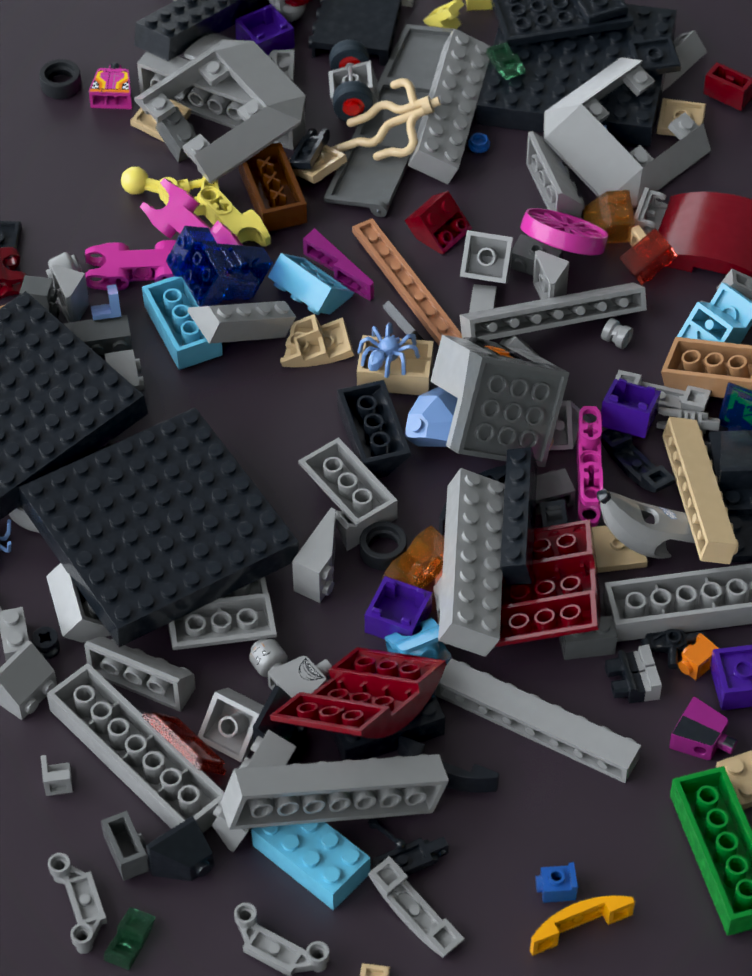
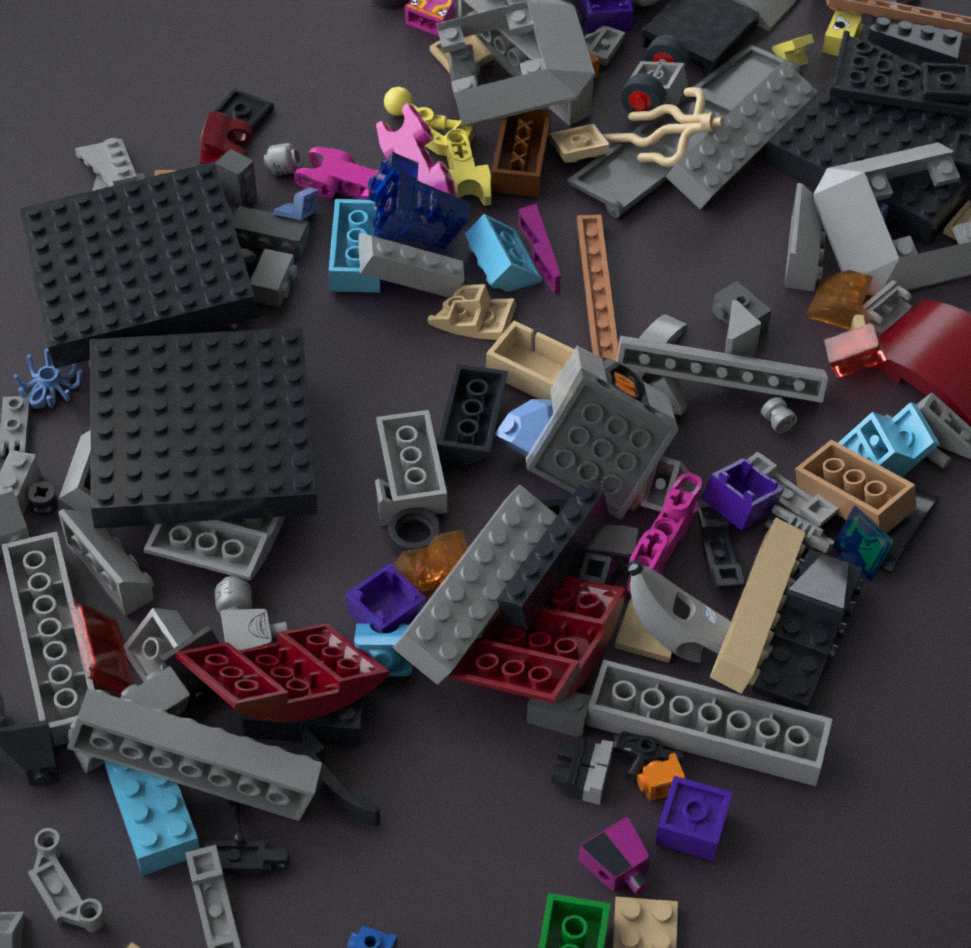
camera: 25 degrees right, 0 degrees up
(71, 292) = (270, 182): light grey slope -> none
(309, 149) = (577, 127): black hinge -> none
(315, 561) = (339, 519): light grey slope -> none
(387, 350) = (526, 343): medium blue animal -> none
(401, 321) = (564, 325): tile -> none
(438, 222) = (664, 242): dark red slope -> none
(479, 143) = (753, 180): blue plate -> none
(487, 257) = (686, 291): light grey slope -> none
(504, 61) = (819, 107): clear green slope -> none
(538, 720) = (459, 774): light grey brick -> none
(564, 231) = (778, 293): dark pink piece -> none

